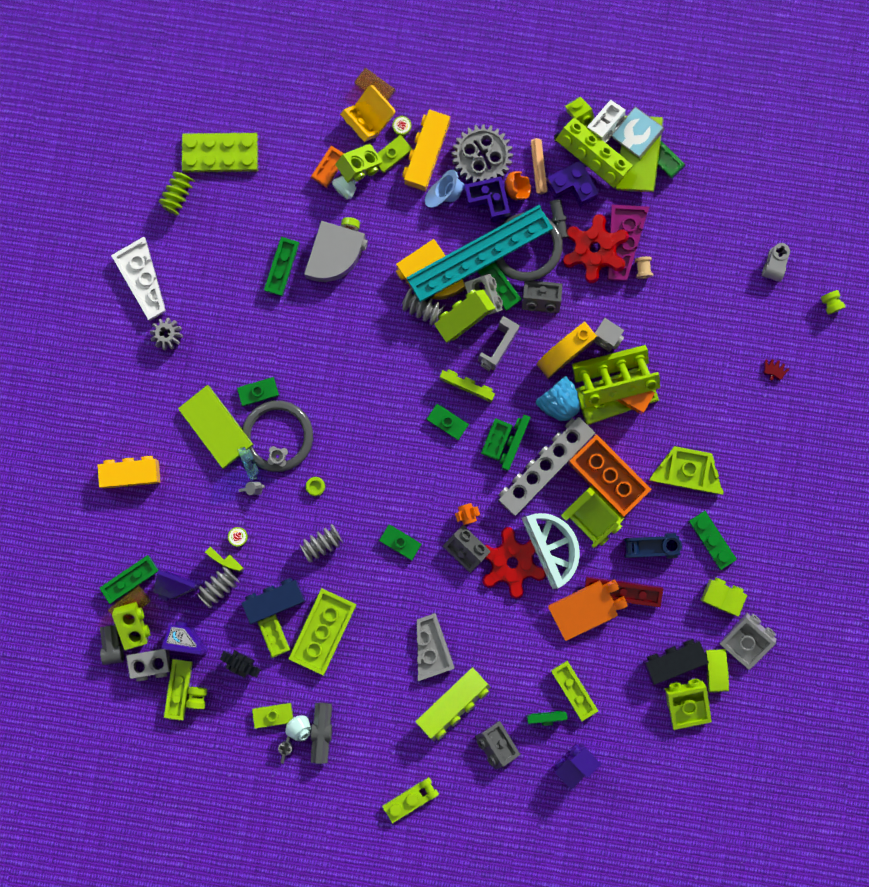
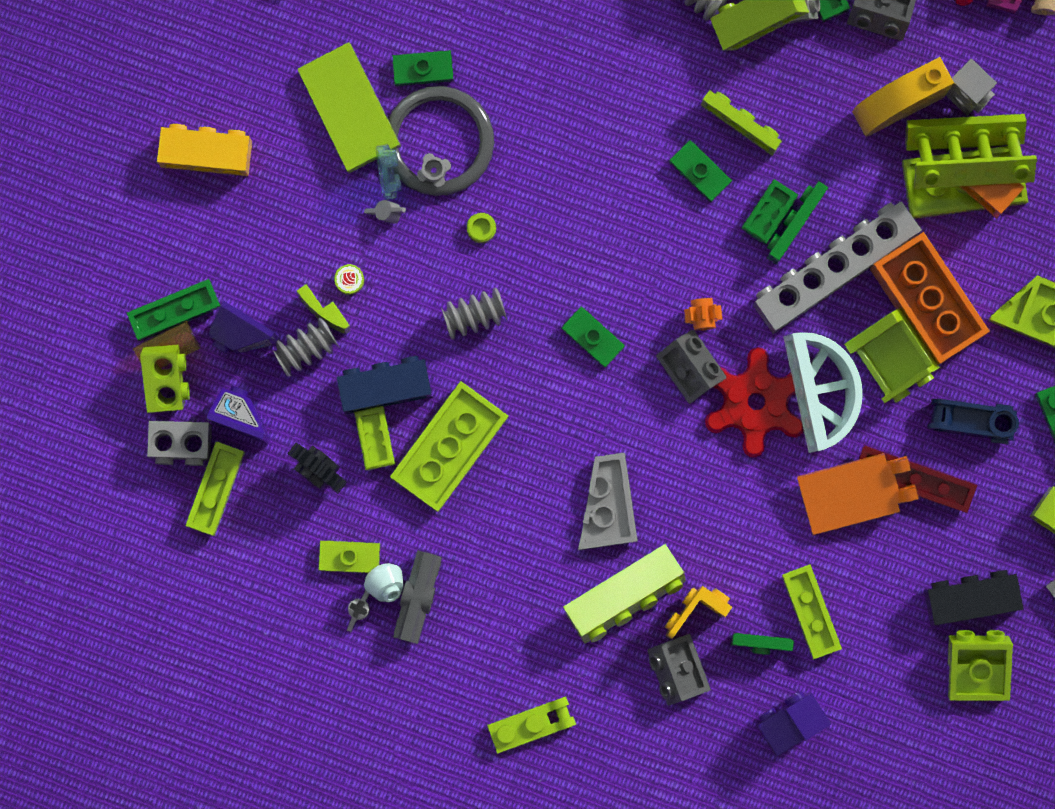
camera: 10 degrees right, 0 degrees up
(111, 649) = (127, 411): dark grey piece -> none
(196, 702) = (237, 512): lime wheel -> none
(510, 697) = (713, 600): none -> yellow bracket
(511, 330) = (824, 50): light grey panel -> none
(560, 400) = (878, 172): dark azure hair -> none
(717, 671) = (1034, 626): lime slope -> none

